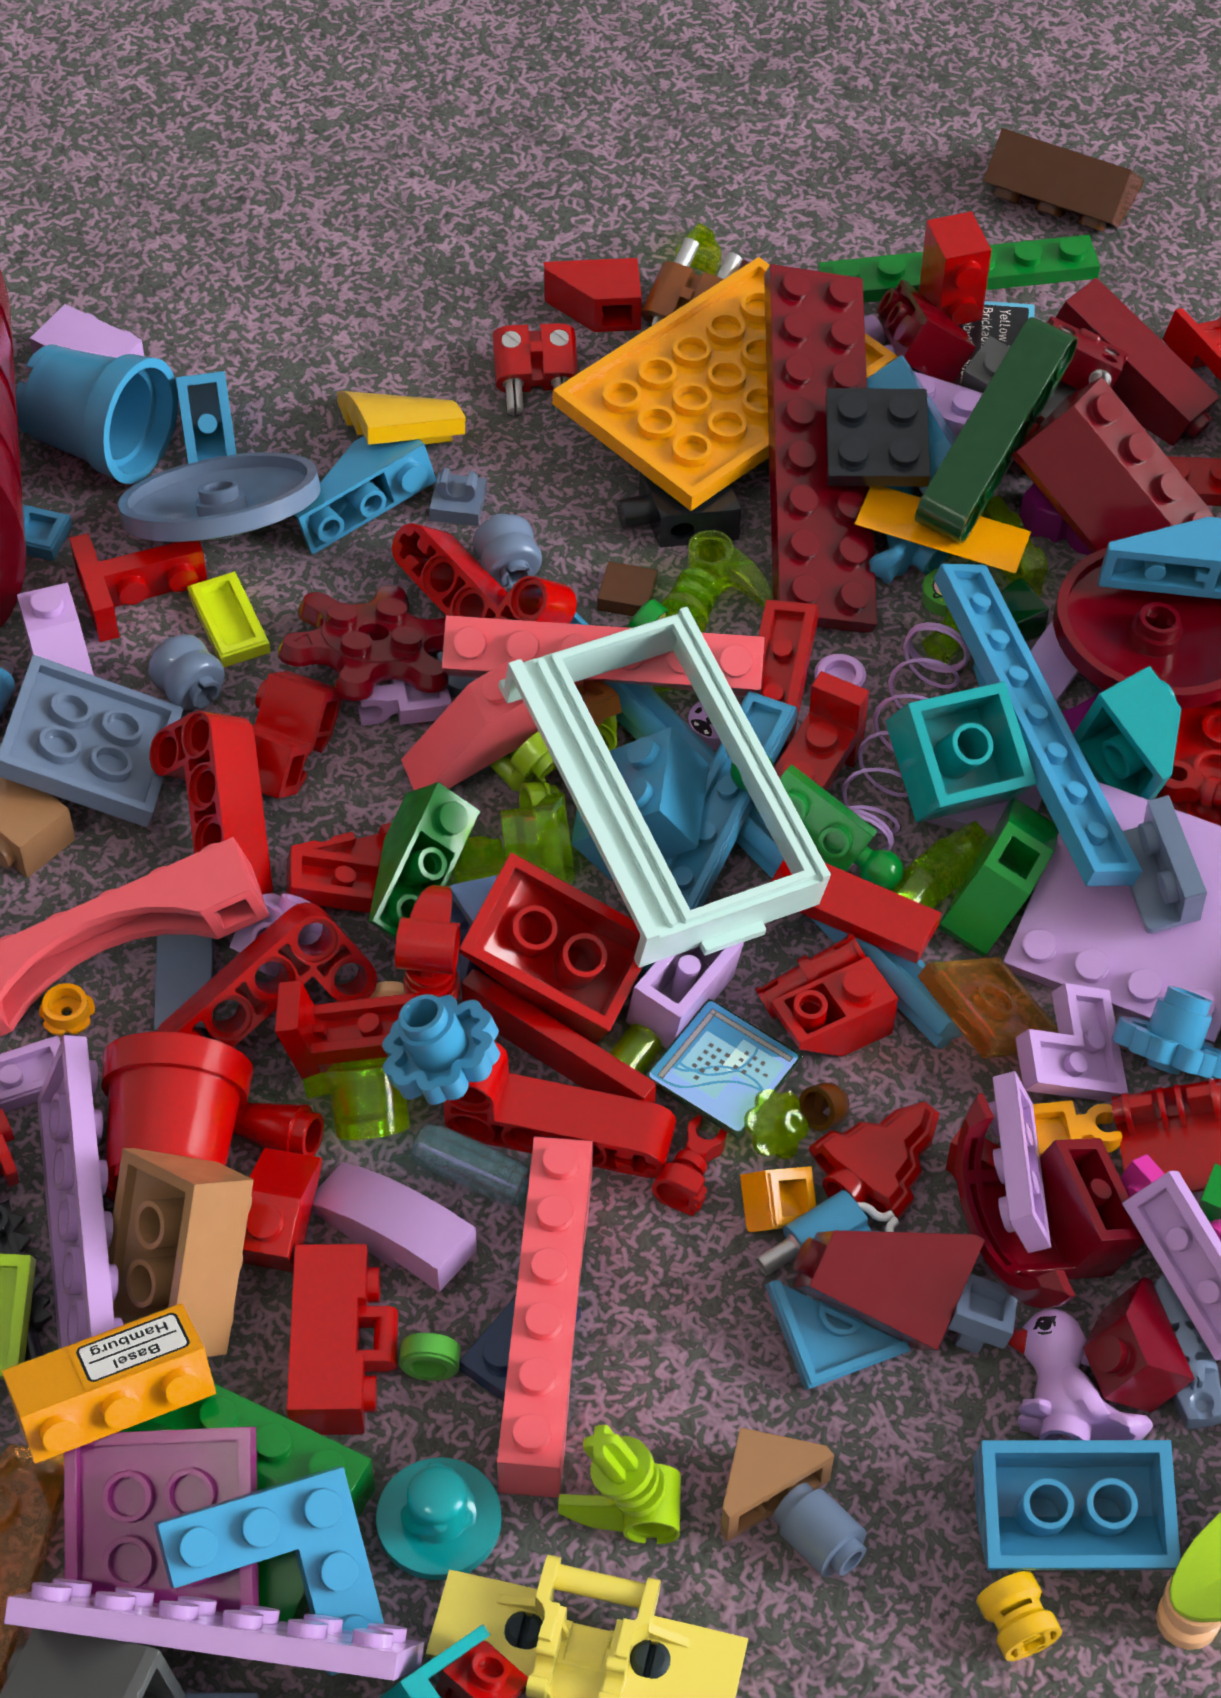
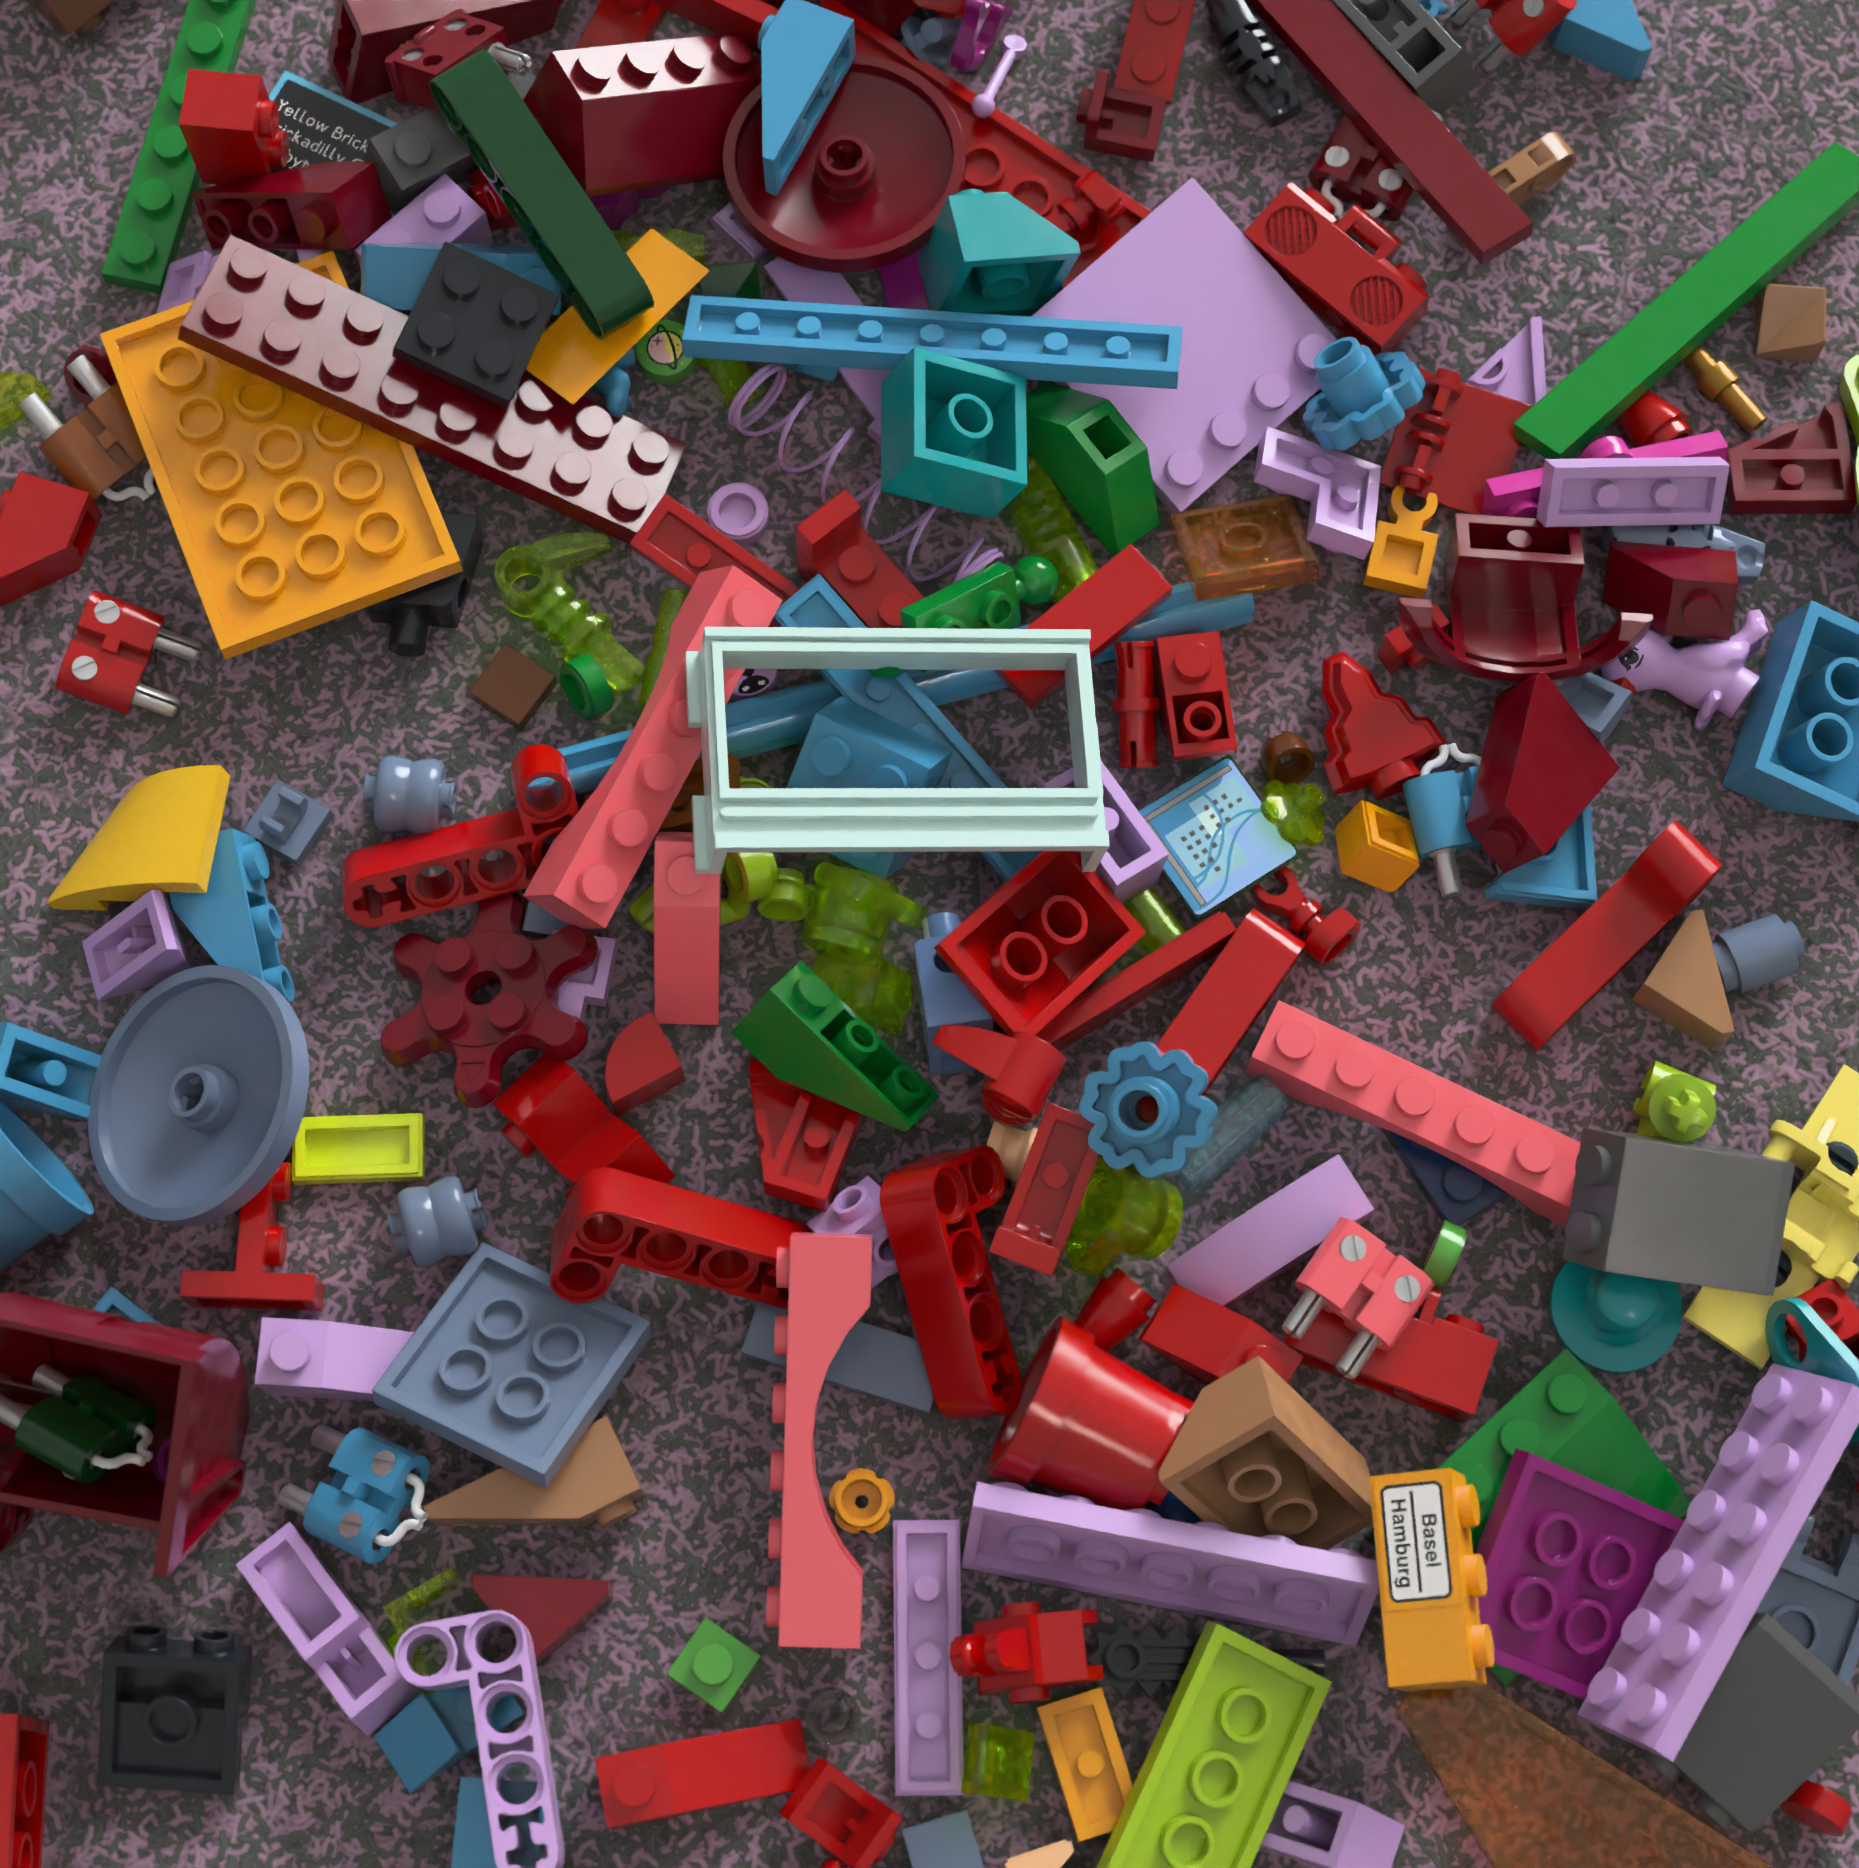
camera: 70 degrees left, 20 degrees up
(300, 1515) = (1623, 1434): dark azure plate -> none
(325, 441) = (137, 947): none -> lavender slope
(359, 753) = (640, 1065): none -> red brick
(361, 1274) = (1363, 1287): none -> coral piece
(520, 1484) = (1678, 1211): none -> dark grey slope
(777, 1396) = (1607, 936): none -> red beam
(1019, 1163) = (1468, 602): lavender plate -> none
(1170, 885) = (1181, 296): sand blue bracket -> none

